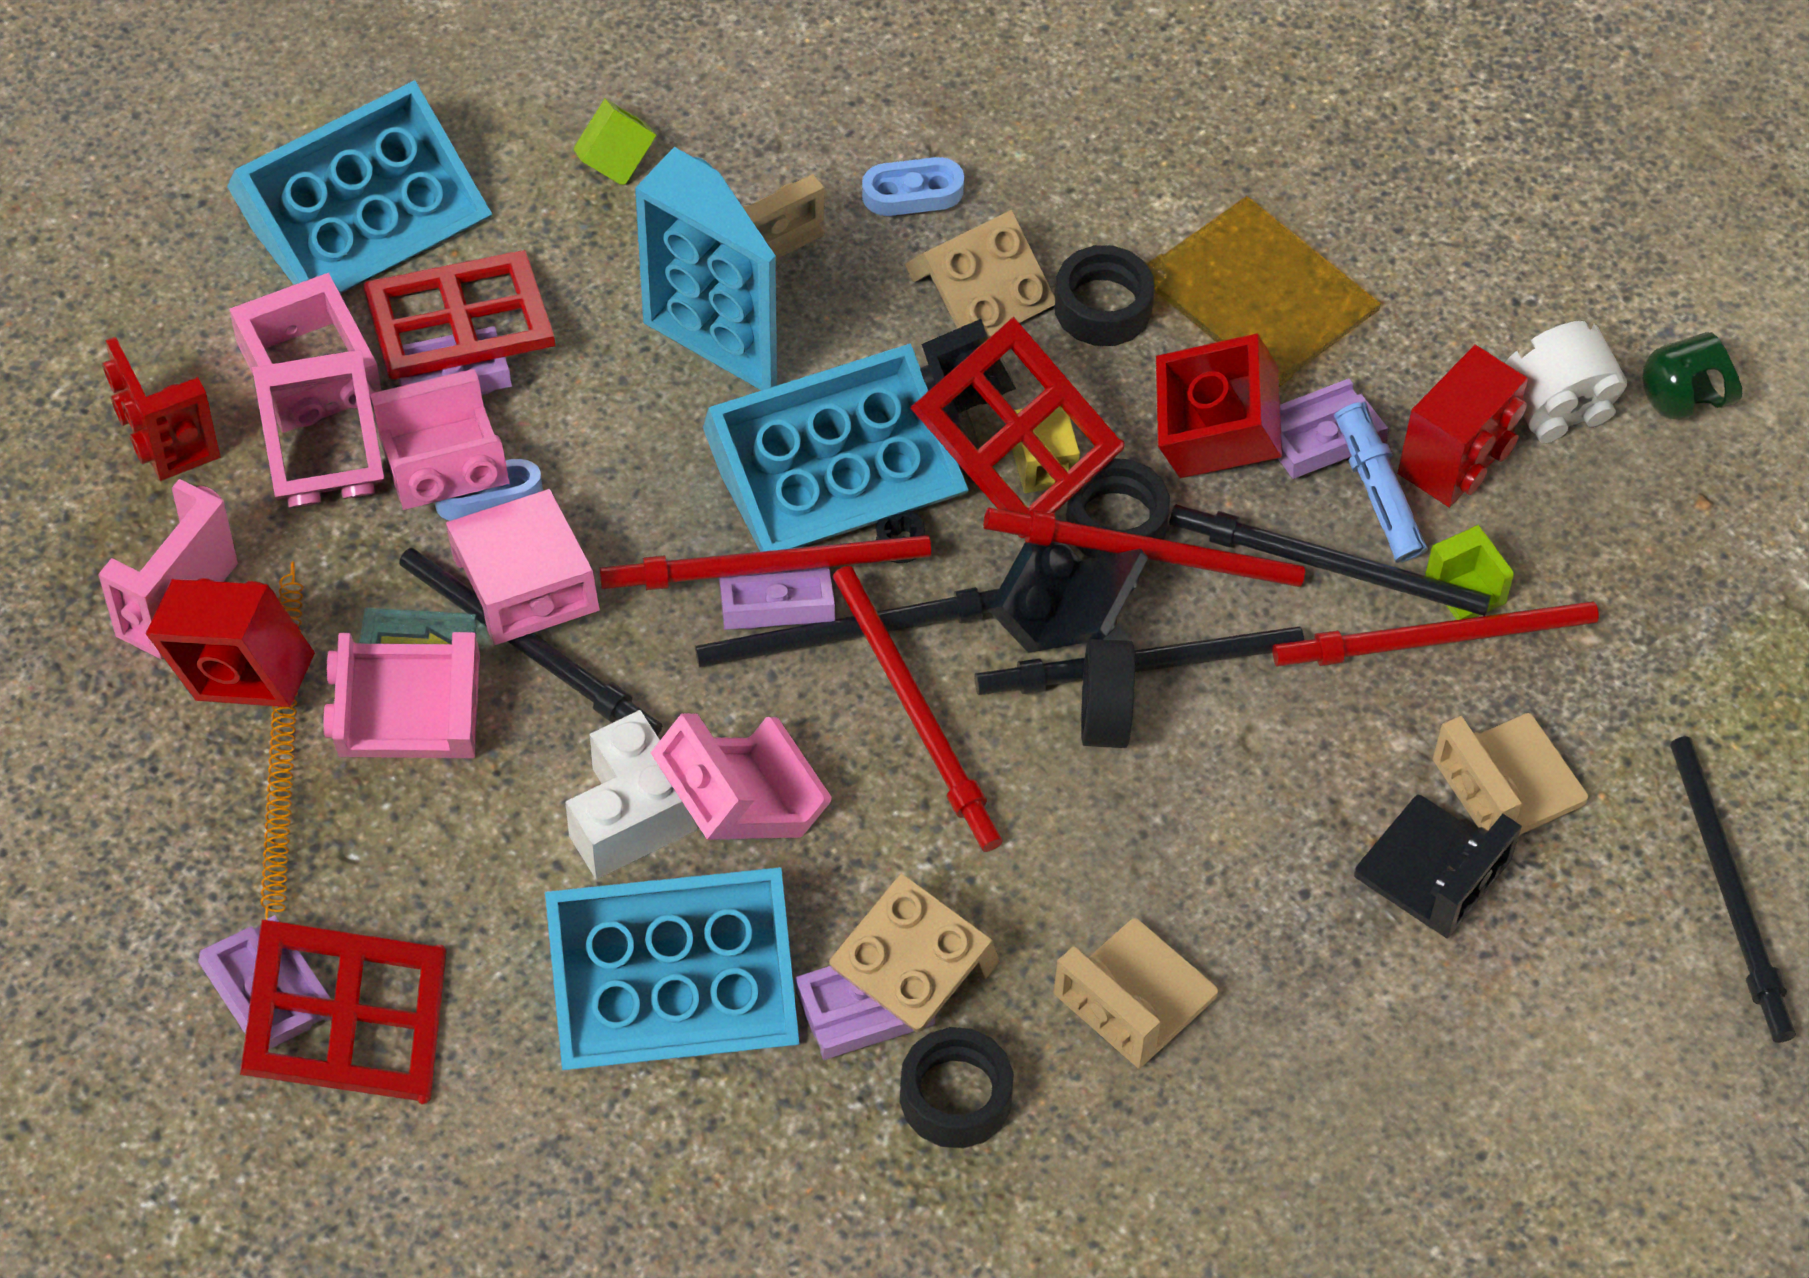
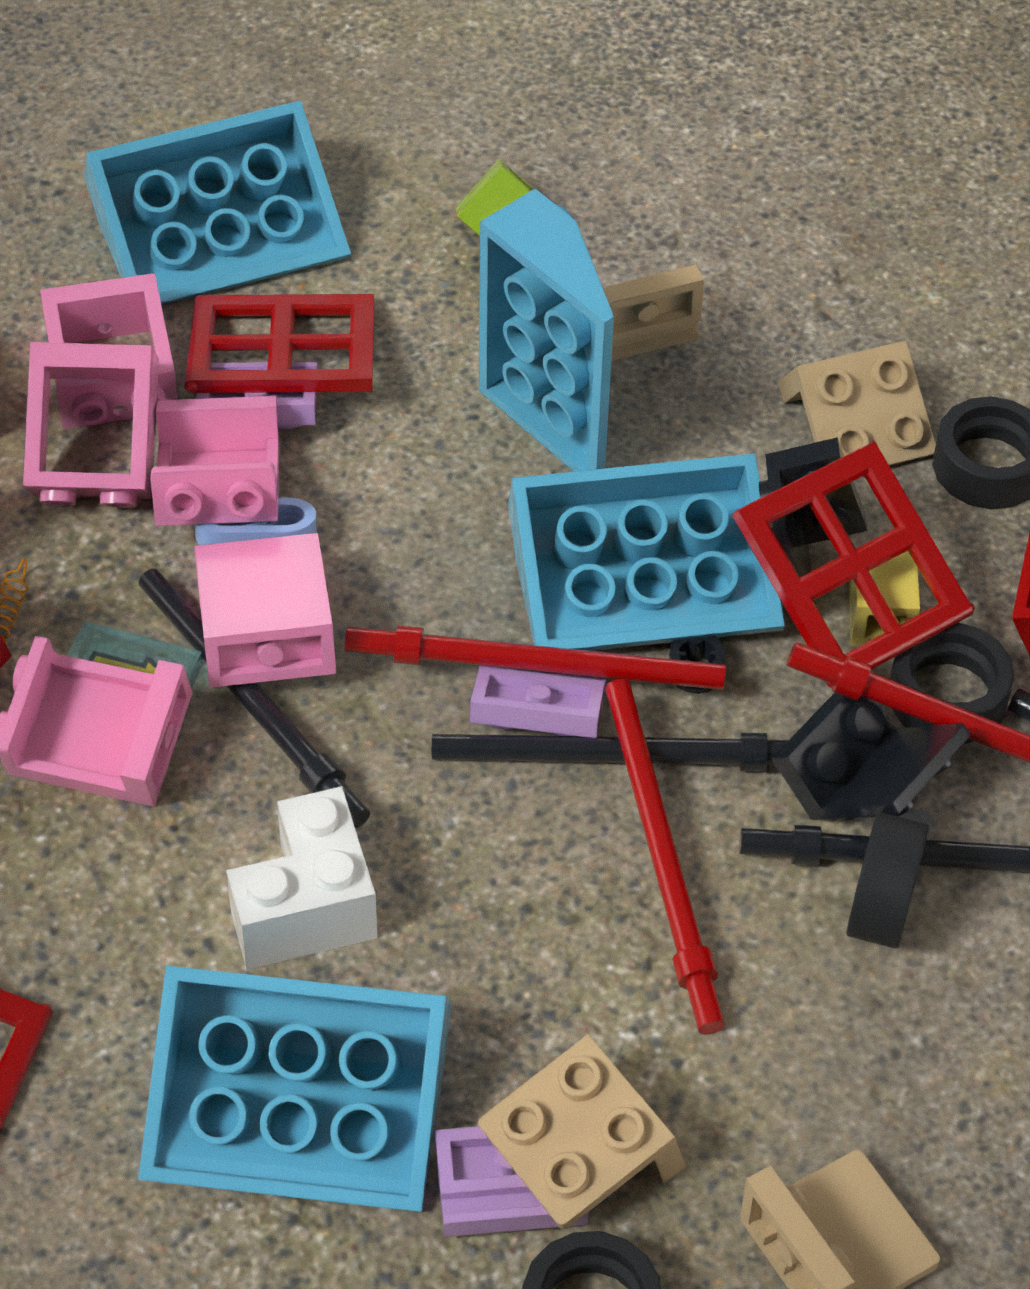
camera: 15 degrees right, 5 degrees down
(741, 784) = (431, 893): bright pink panel -> none
(909, 186) = (807, 304): light blue plate -> none

